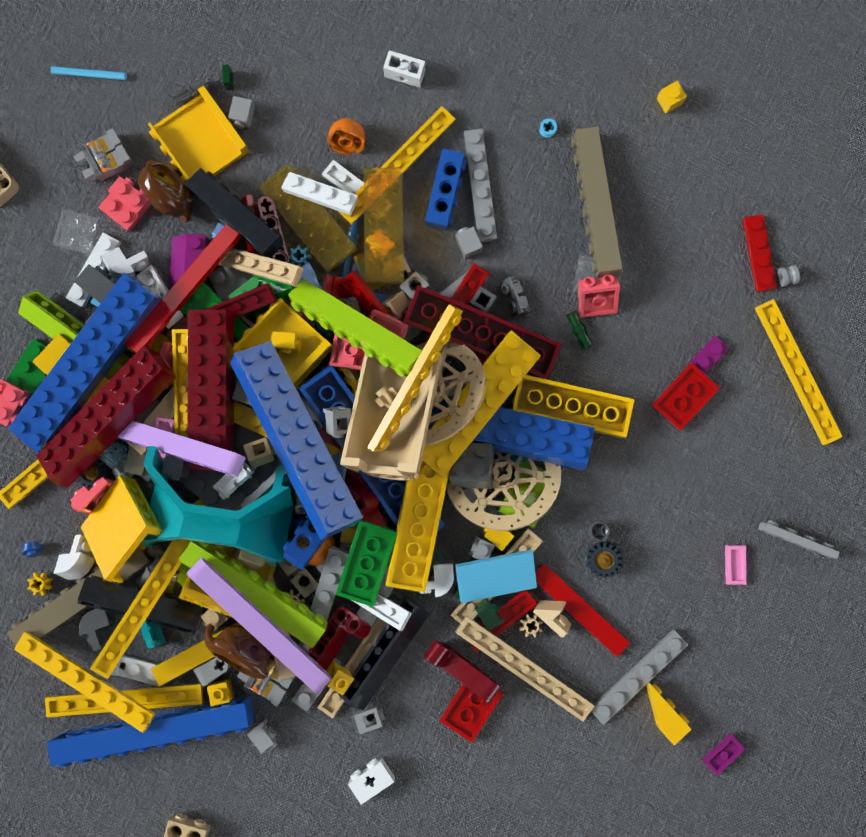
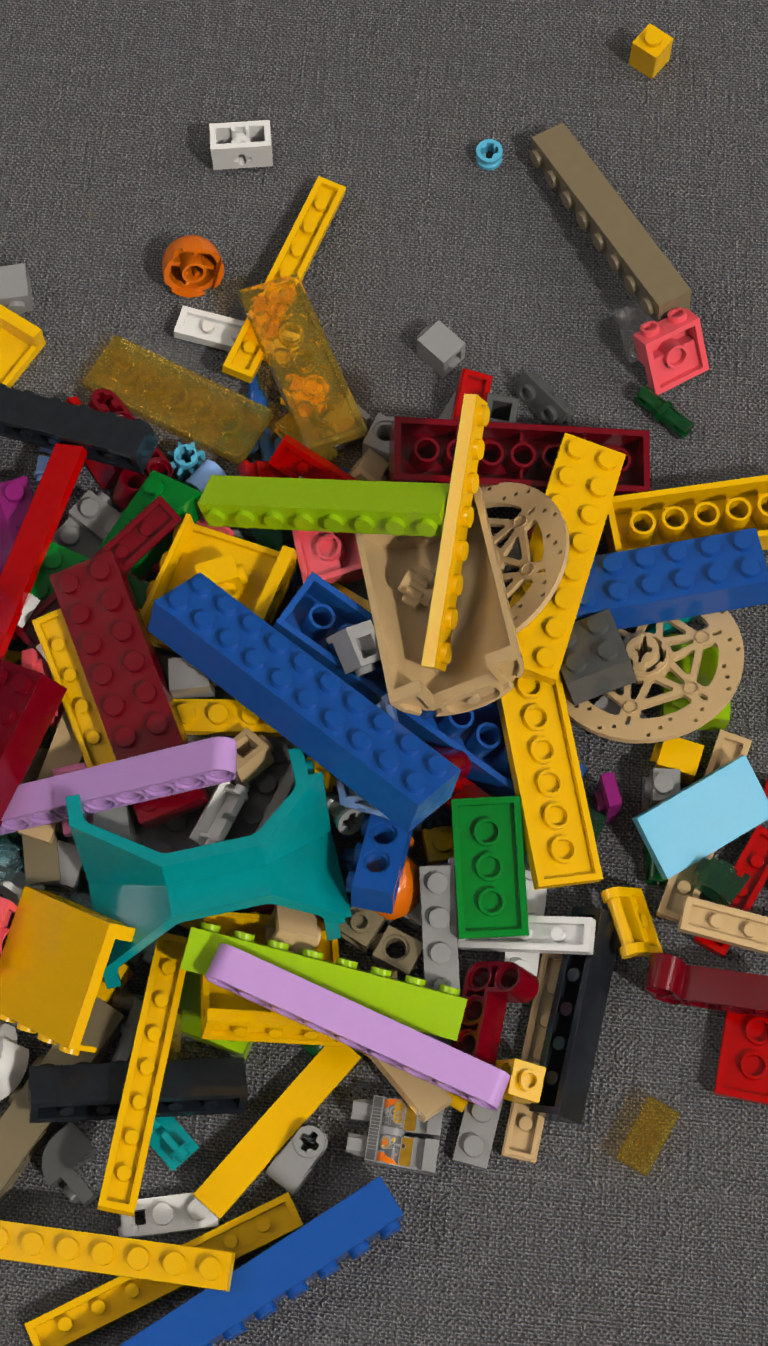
camera: 25 degrees left, 15 degrees down
(215, 618) = (269, 1067): tan brick -> none
(220, 692) = (326, 1188): yellow brick -> none
(239, 650) = (336, 1094): reddish brown piece -> none
(262, 267) = (139, 480): tan tile -> none
(263, 737) = (431, 1239): light grey brick -> none
(320, 193) = (184, 353): white plate -> none
(364, 724) = (581, 1138): light grey brick -> none
(367, 789) = (662, 1228): white brick -> none
(395, 728) = (647, 1136): none -> clear yellow plate
(434, 616) = (632, 921): none -> yellow plate
(442, 579) = (618, 860): white brick -> none
(448, 160) = (374, 332): blue brick -> none
(448, 544) = (607, 796): none -> magenta plate
(480, 185) = (421, 264): light grey plate -> none

